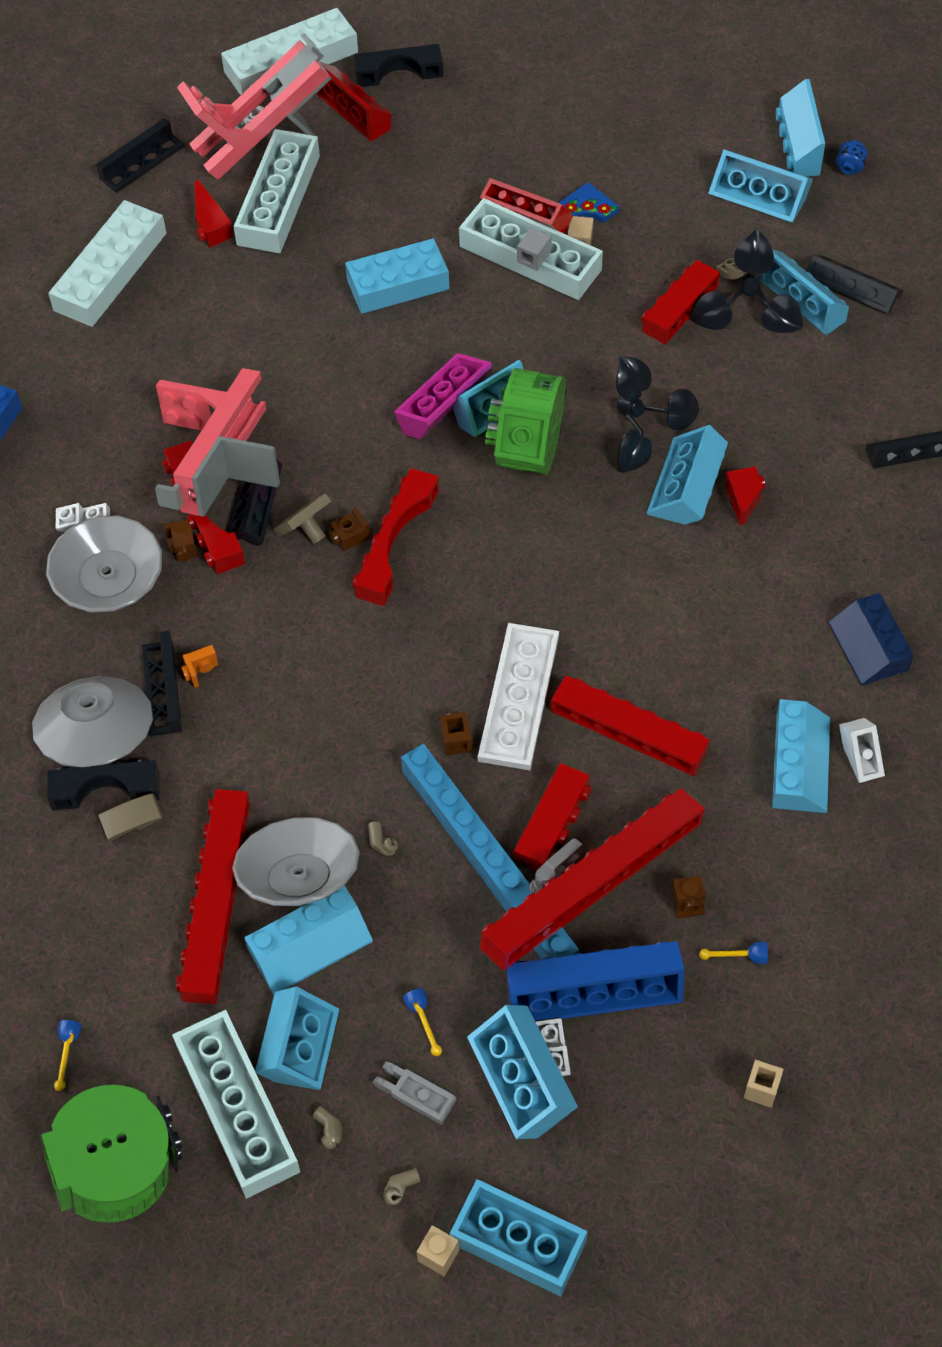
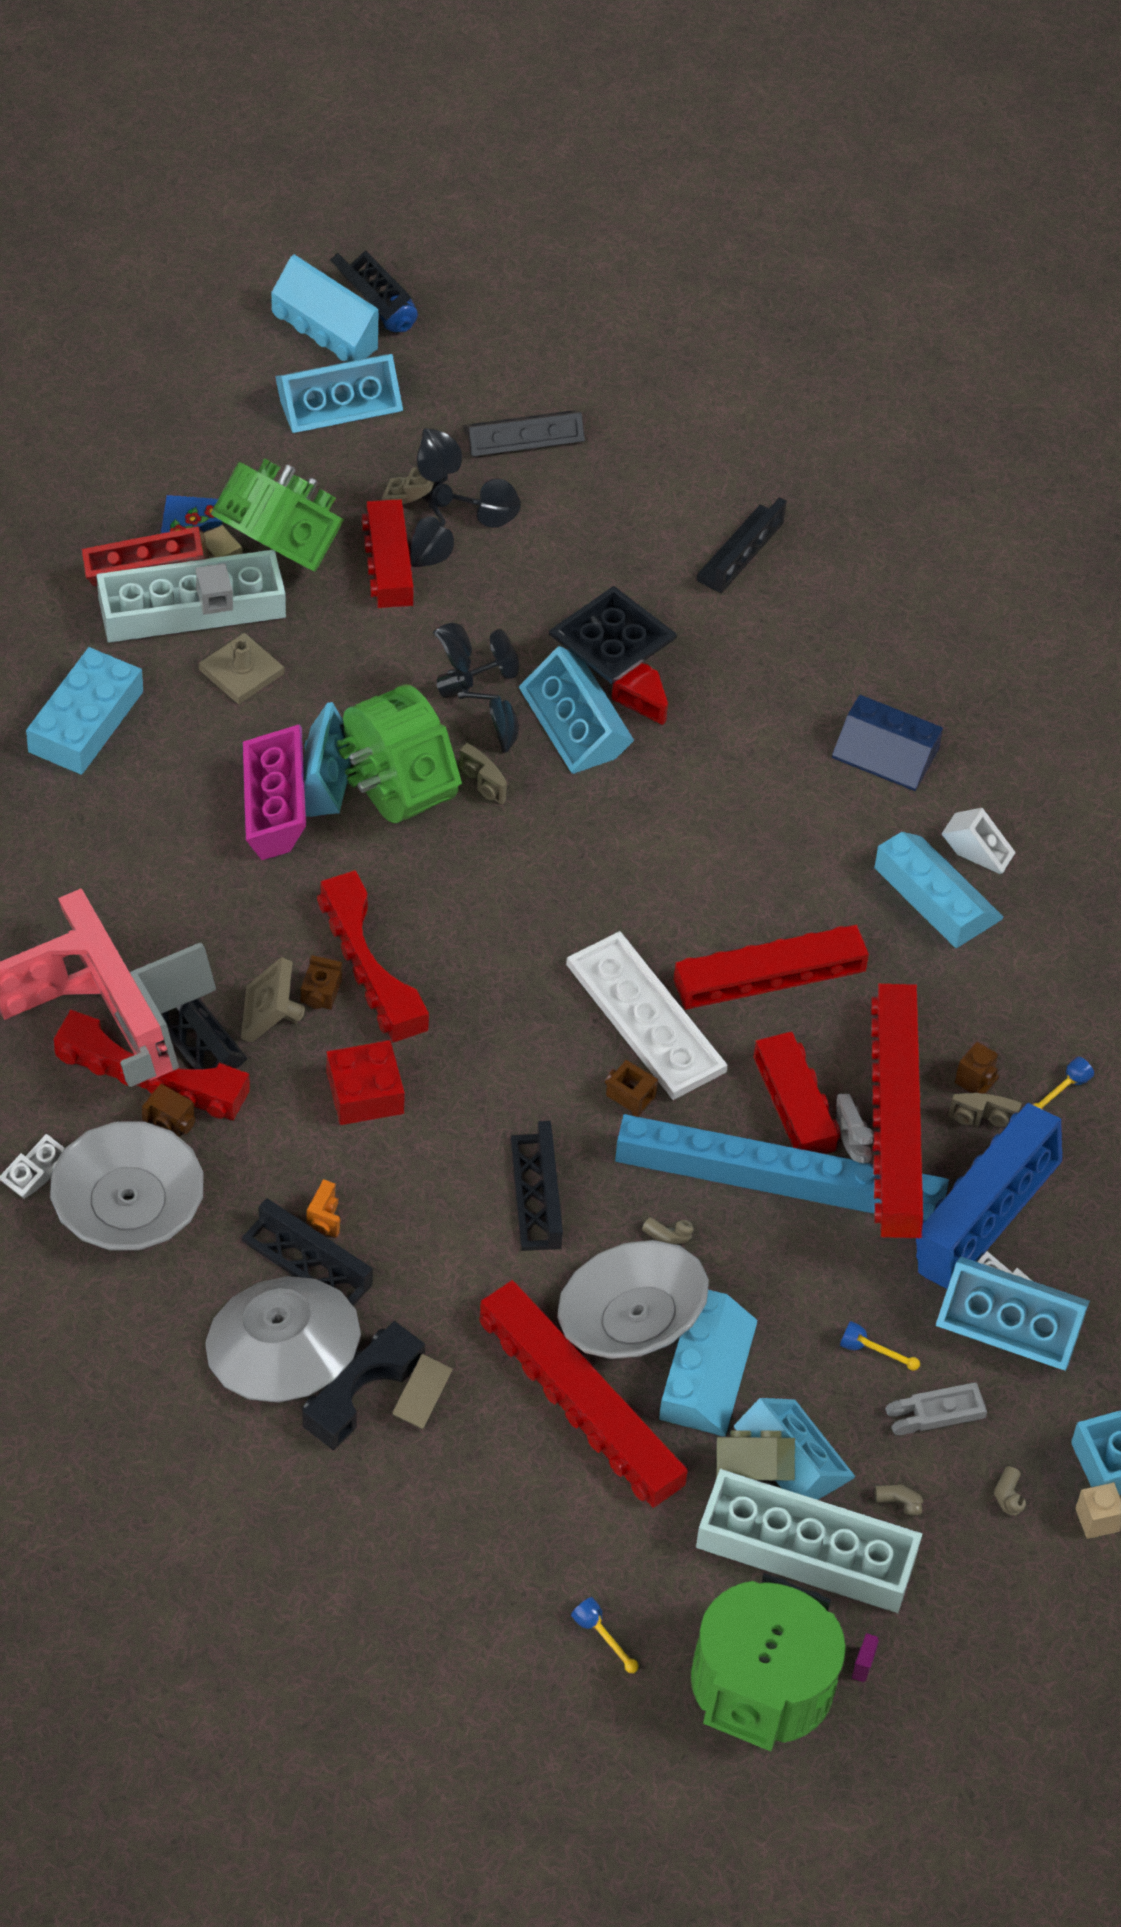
camera: 50 degrees left, 5 degrees down
(189, 1207) = (865, 1657): none -> magenta tile
(257, 1022) = (755, 1457): none -> olive brick
(305, 607) = (365, 1082): none -> red brick
(336, 755) = (549, 1185): none -> black fence
(518, 312) = (241, 668): none -> dark tan tile
(584, 483) = (490, 779): none -> dark tan slope
(617, 228) = (279, 512): none -> bright green piece
(662, 922) = (973, 1107): none -> dark tan slope
(755, 441) = (612, 634): none -> black slope
(815, 300) = (525, 471): medium azure slope -> none
(846, 128) = (371, 289): none -> black fence

